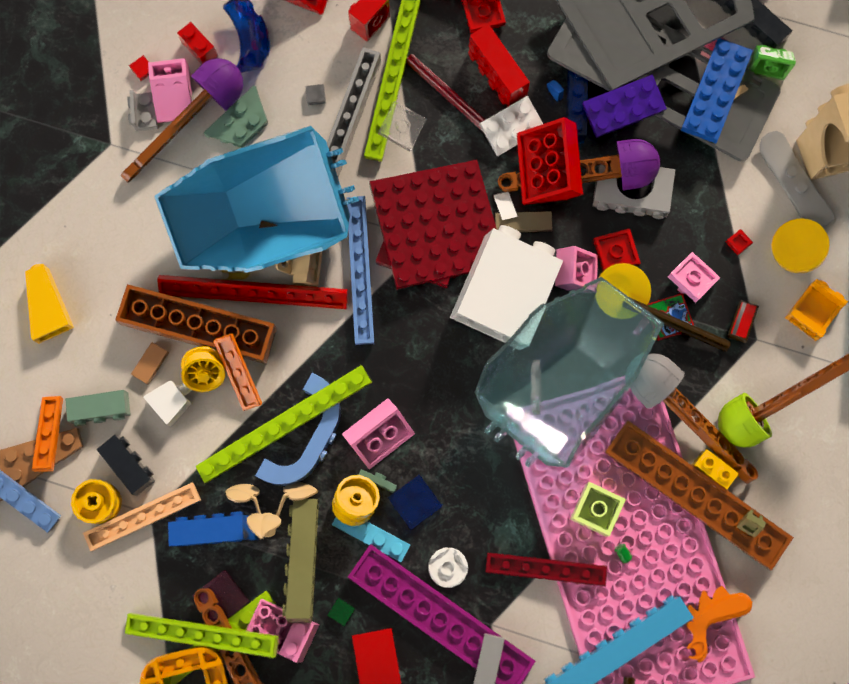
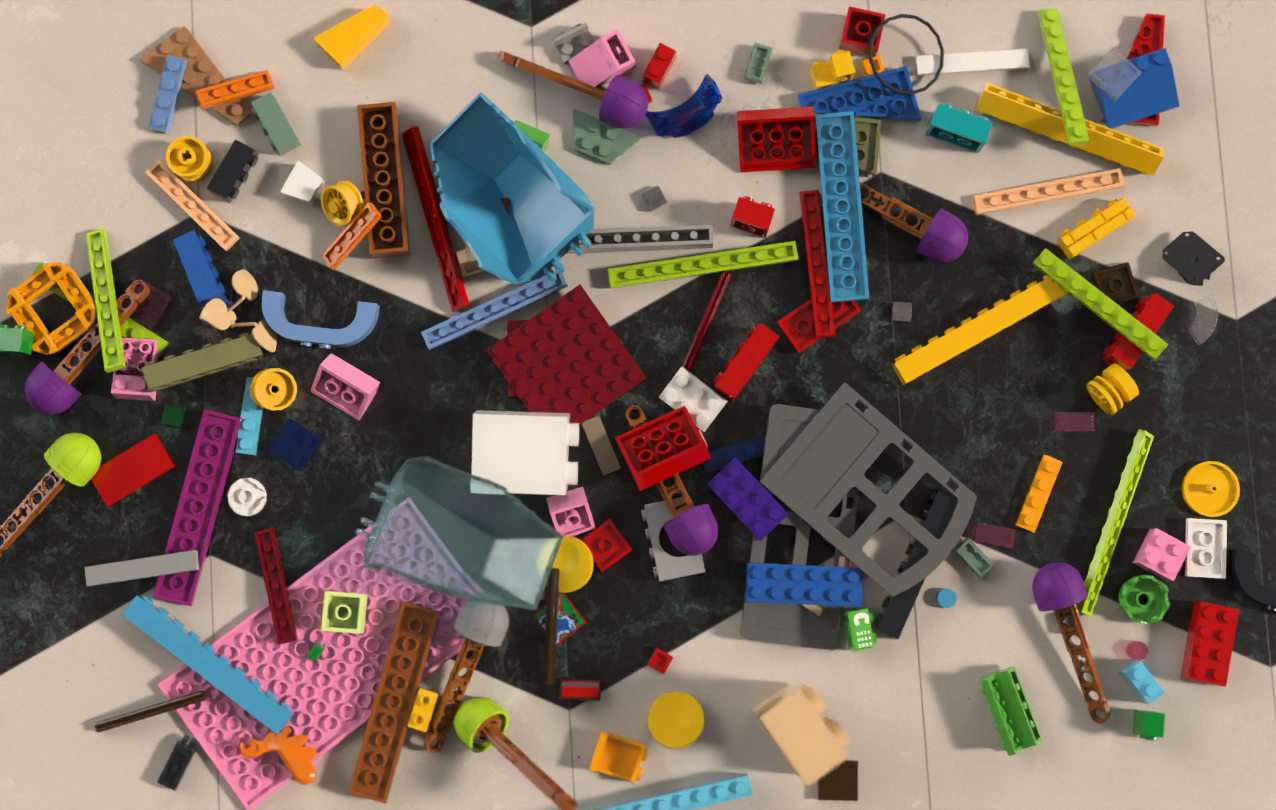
camera: 65 degrees right, 5 degrees up
(140, 67) = (618, 22): red tile -> none
(149, 363) = (334, 152): medium nougat tile -> none
(283, 424) = (320, 297): lime plate -> none
(379, 481) = (301, 403): sand green plate -> none
(402, 126) = (651, 293): clear tile -> none
(505, 205) = (610, 422): white sticker -> none
(536, 387) = (437, 515): clear tile -> none
(555, 90) = (747, 427): blue tile -> none
(693, 277) = (605, 627): bright pink hinge -> none
(751, 524) = (380, 758): olive tile -> none
(794, 180) = (744, 694): light grey piece -> none

